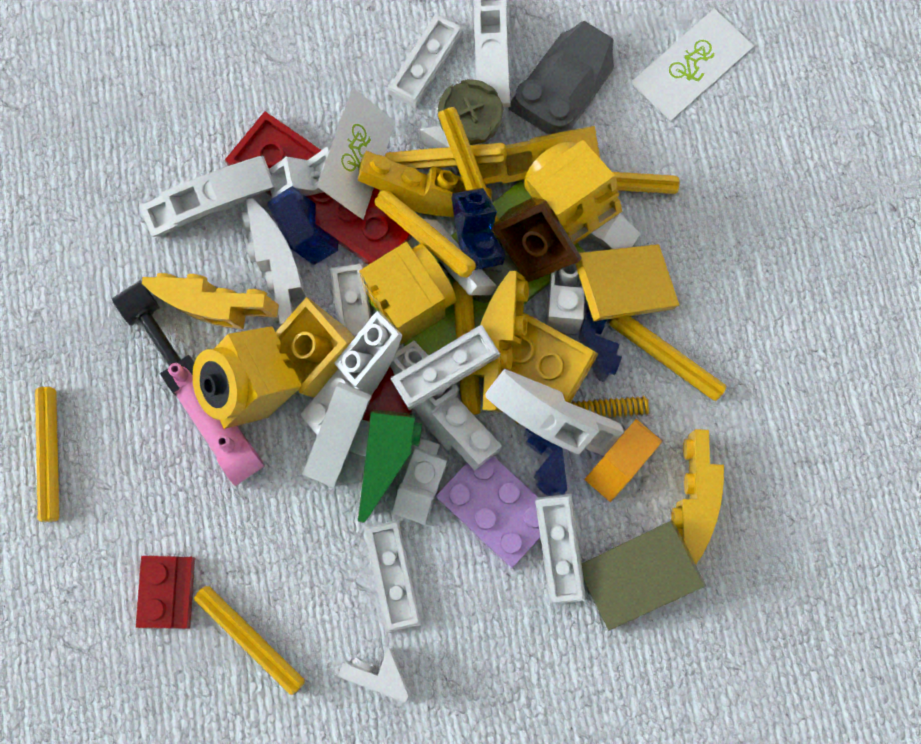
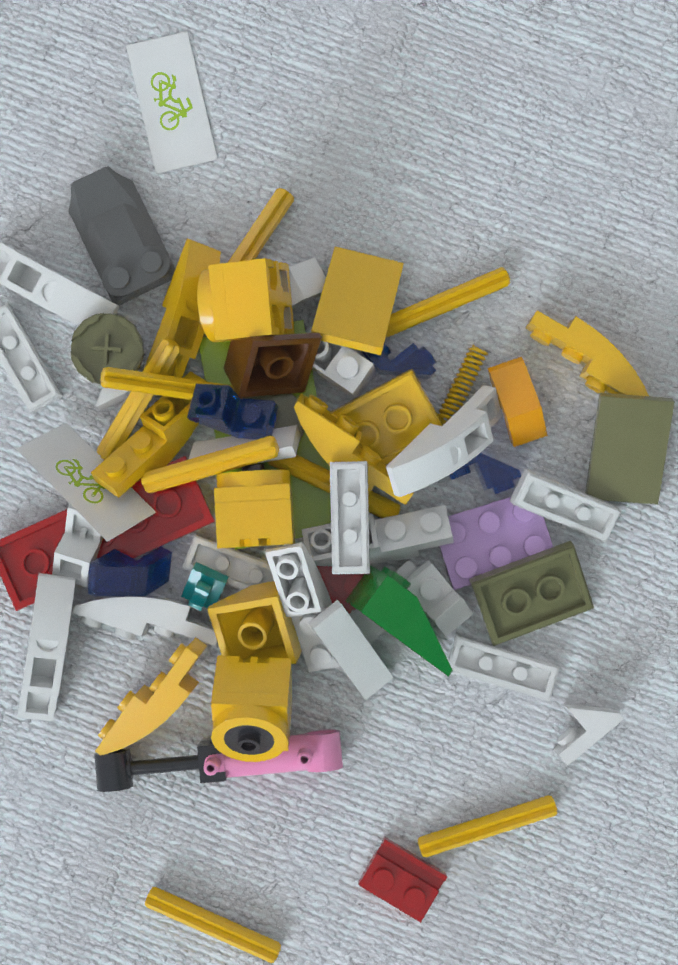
camera: 60 degrees left, 10 degrees up
(324, 291) = (204, 586): none -> teal tile
(469, 563) = (531, 593): none -> olive tile

